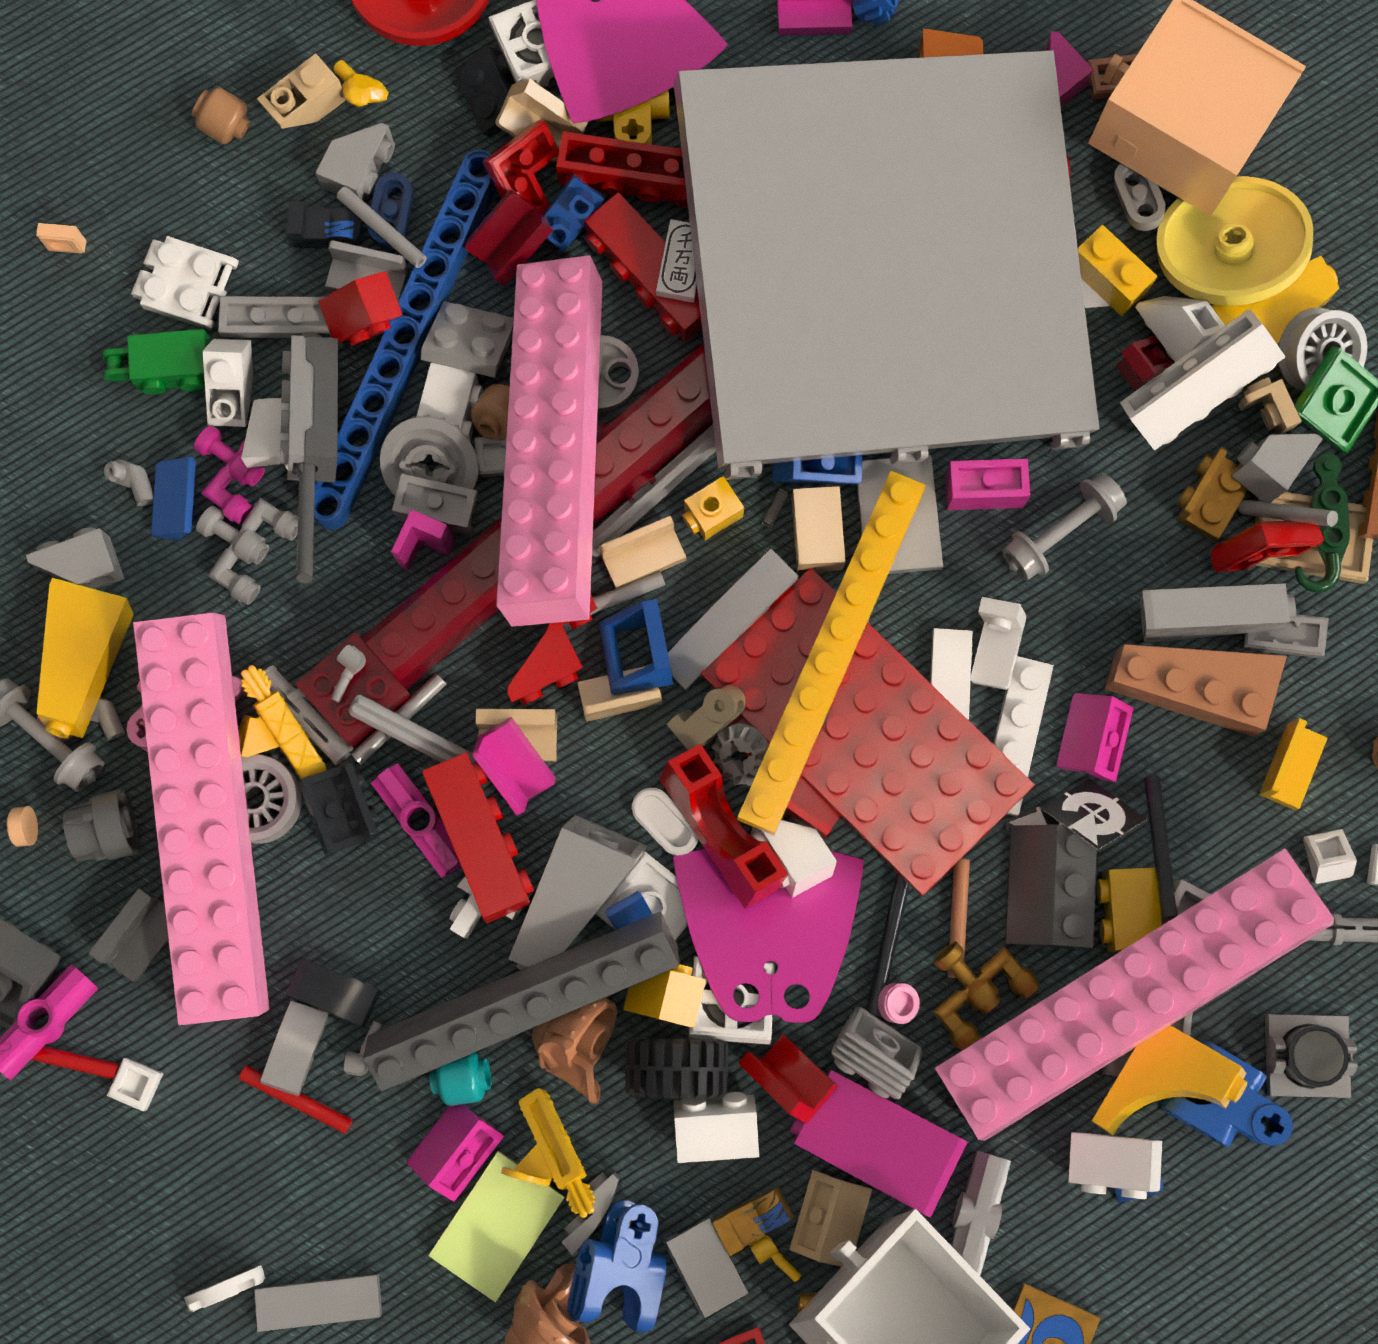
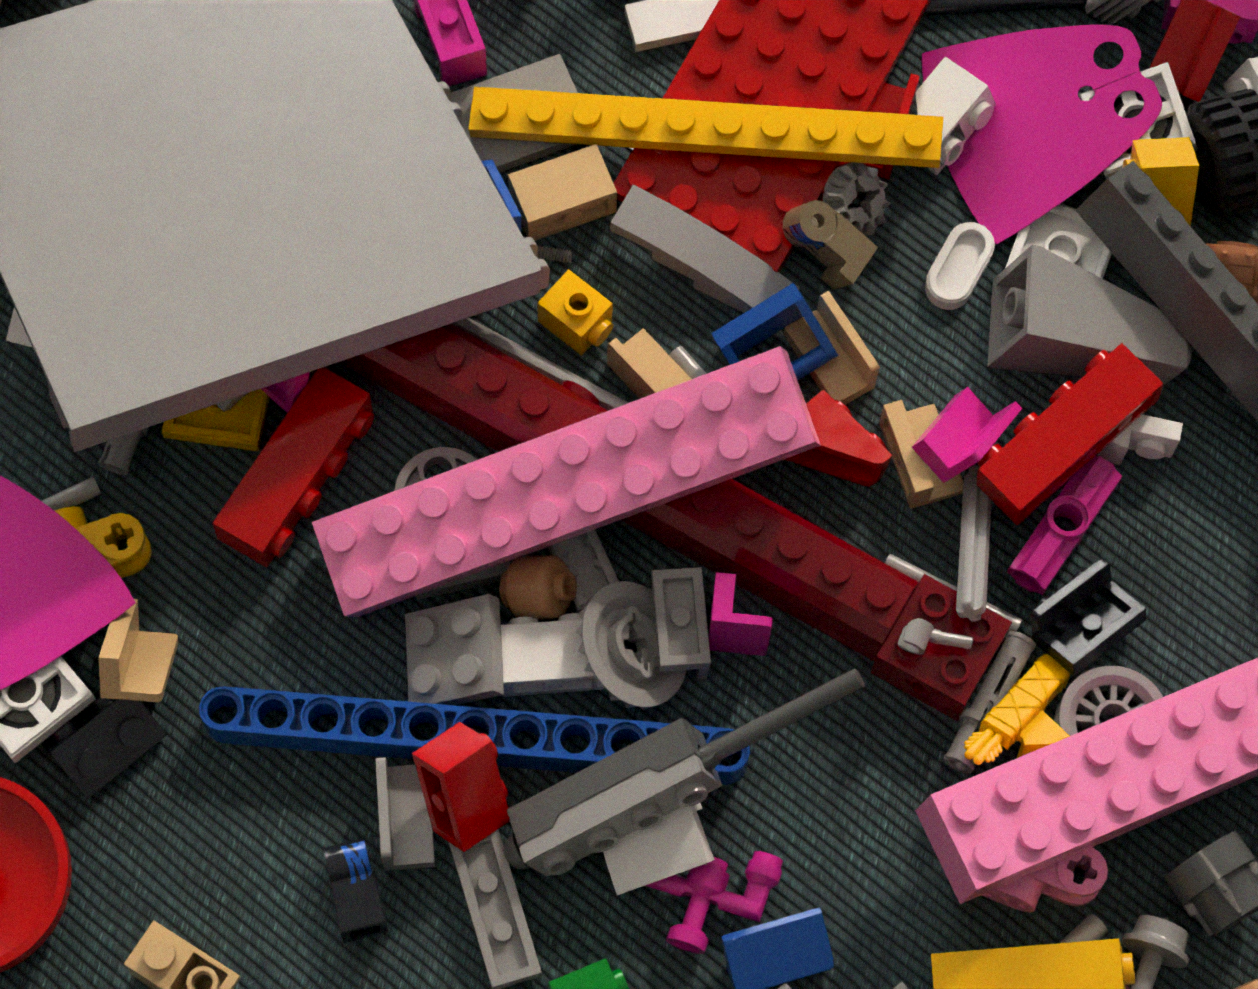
camera: 110 degrees left, 10 degrees down
(228, 381) = (600, 932): white slope -> none
(245, 544) = (804, 844): light grey piece -> none
(356, 160) = (257, 879): light grey slope -> none
(359, 88) = (143, 904): yellow rock -> none
(381, 227) = (341, 801): light grey piece -> none
(394, 212) = (307, 812): dark blue plate -> none
(509, 236) = (309, 637): dark red panel -> none
(519, 159) = (213, 658): red brick -> none
(570, 210) = (252, 585): blue hips -> none
(623, 167) = (171, 525): red brick -> none
(628, 910) = (1081, 256): blue slope -> none
(677, 270) = (284, 416): white tile -> none
(699, 794) = (982, 151): red arch -> none

